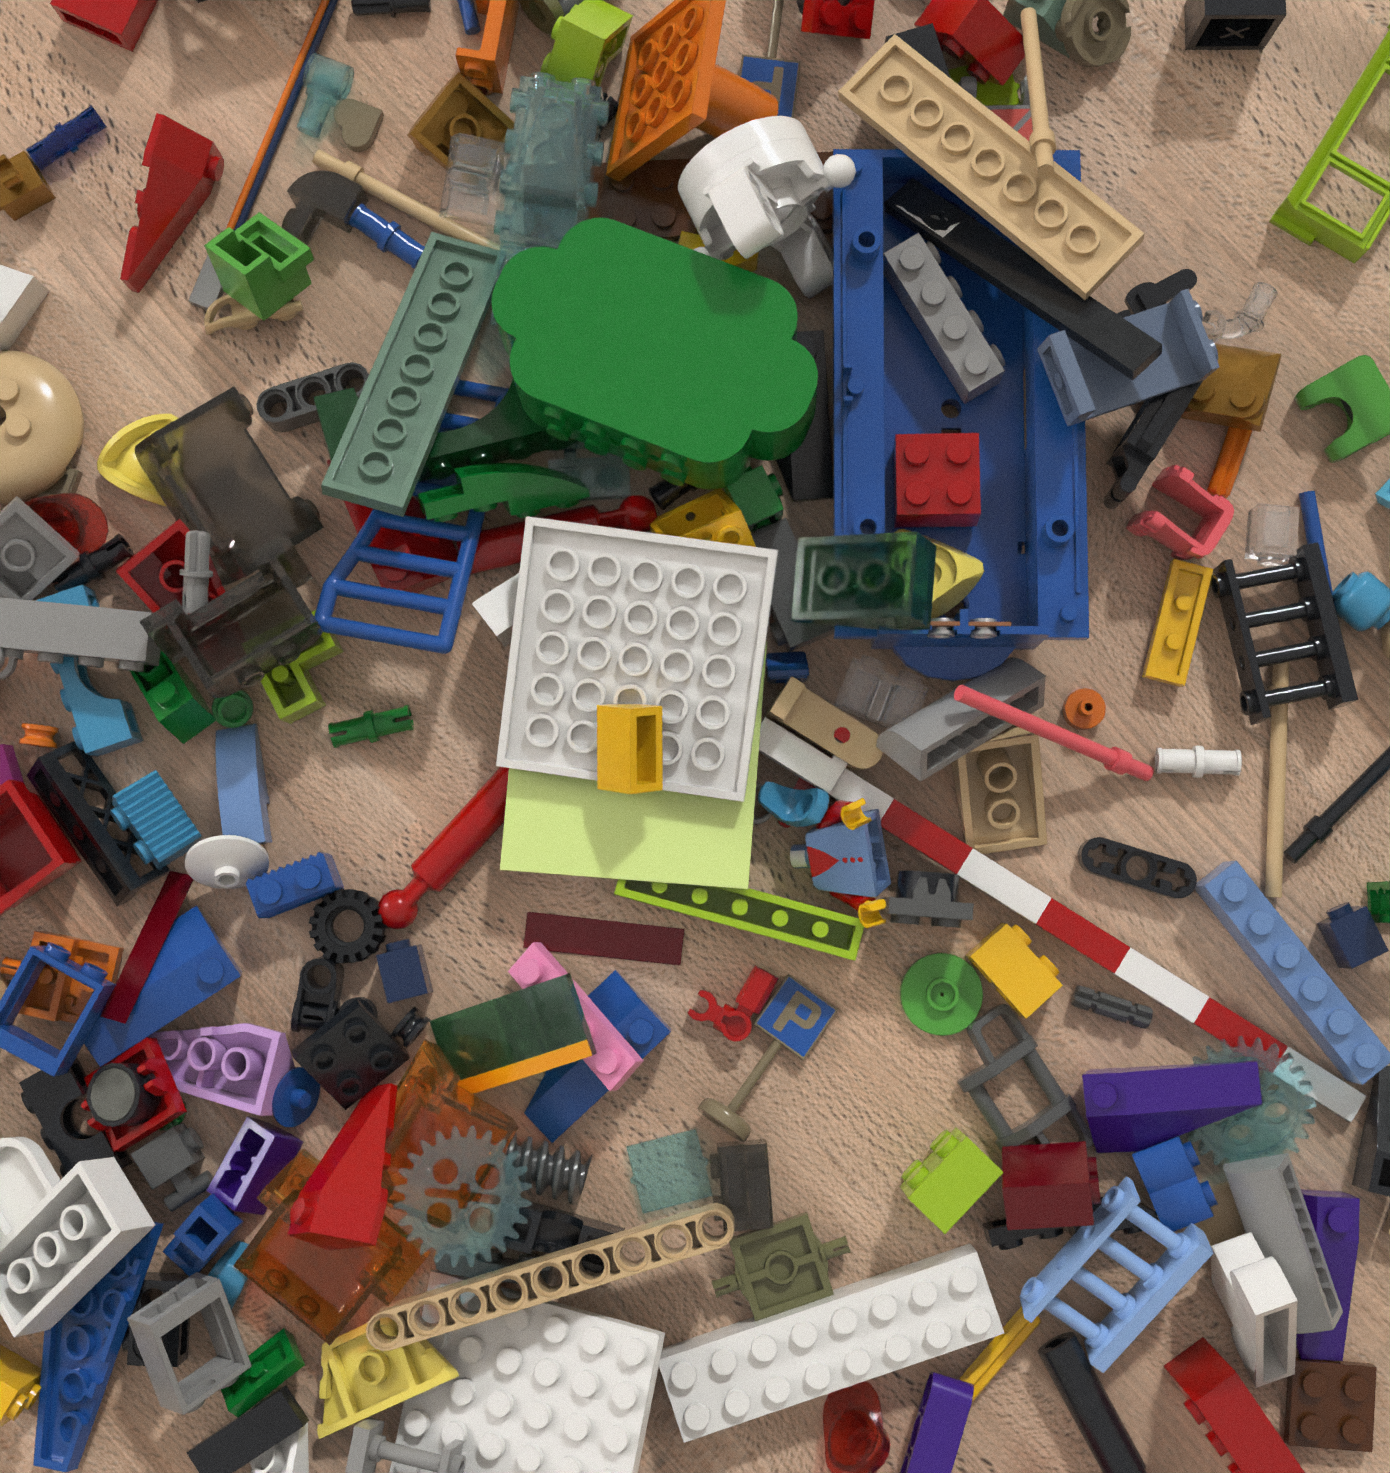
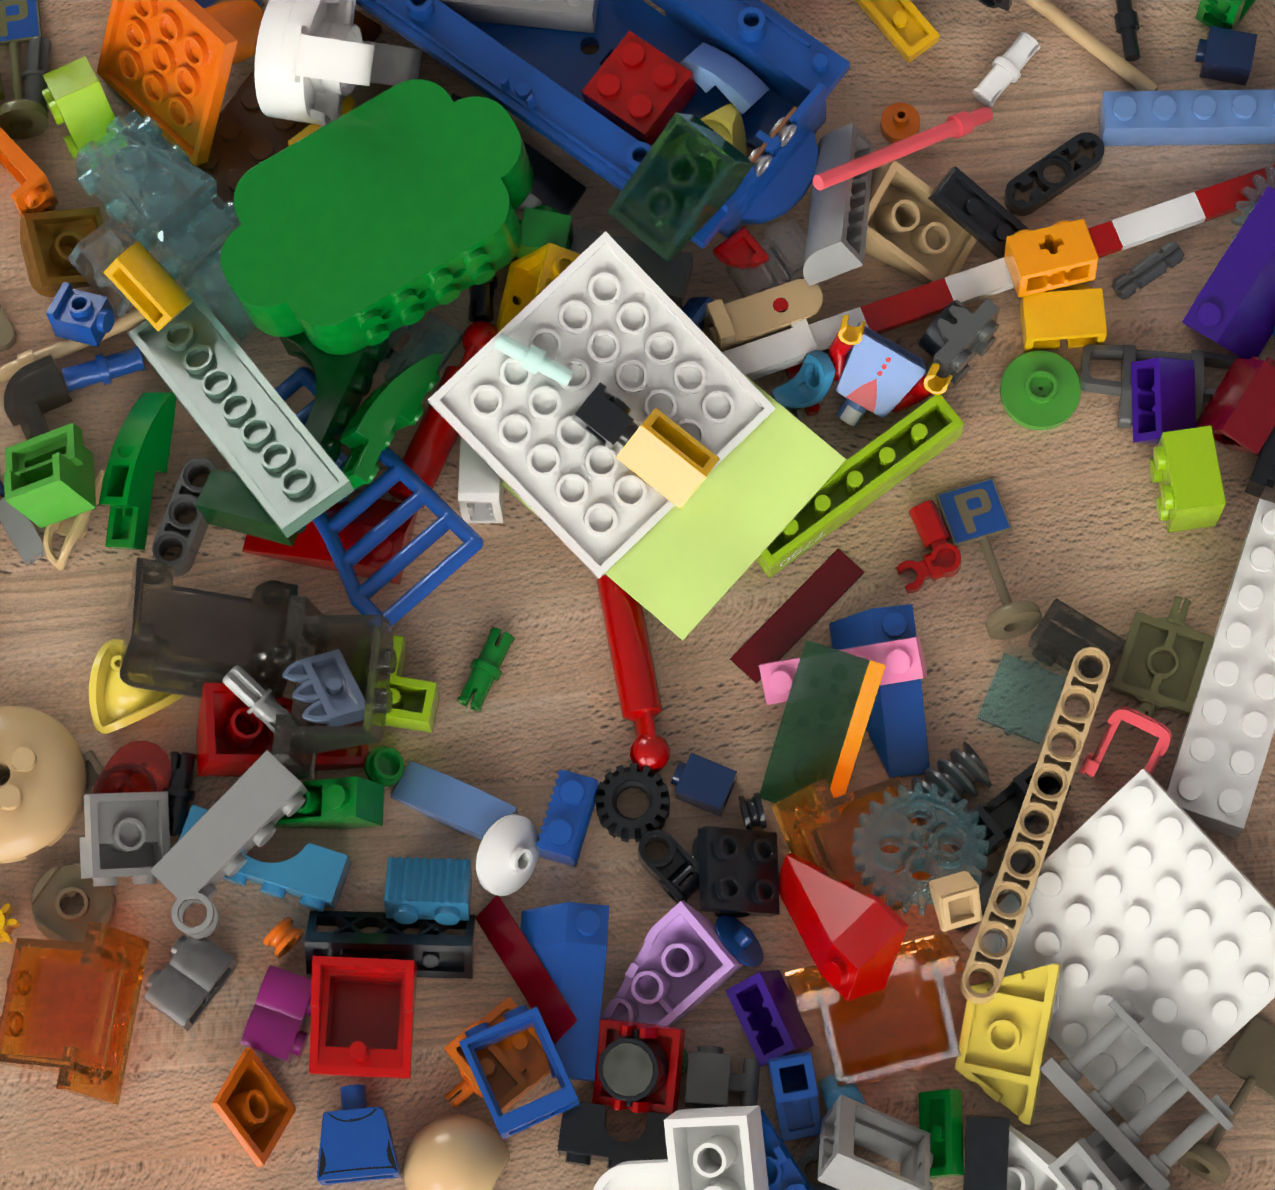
camera: 50 degrees left, 10 degrees down
(236, 622) = (329, 687): none -> sand blue plate
(334, 318) = (129, 477): none -> green slope
(414, 183) = (80, 315): none -> blue brick
(431, 1264) = (956, 900): none -> tan slope
(471, 216) = (148, 286): none -> yellow brick
(619, 673) = (606, 418): none -> black brick
(622, 576) = (533, 359): none -> light aqua bar
(708, 1293) = (1093, 760): none -> coral piece
(866, 666) = (741, 251): none -> red tile
(1002, 1108) = (1162, 397): none -> dark purple brick
(1004, 529) = (730, 76): none -> light blue slope
(1034, 923) = (1050, 257): none -> light orange brick
(1052, 839) = (975, 211): none -> black tile

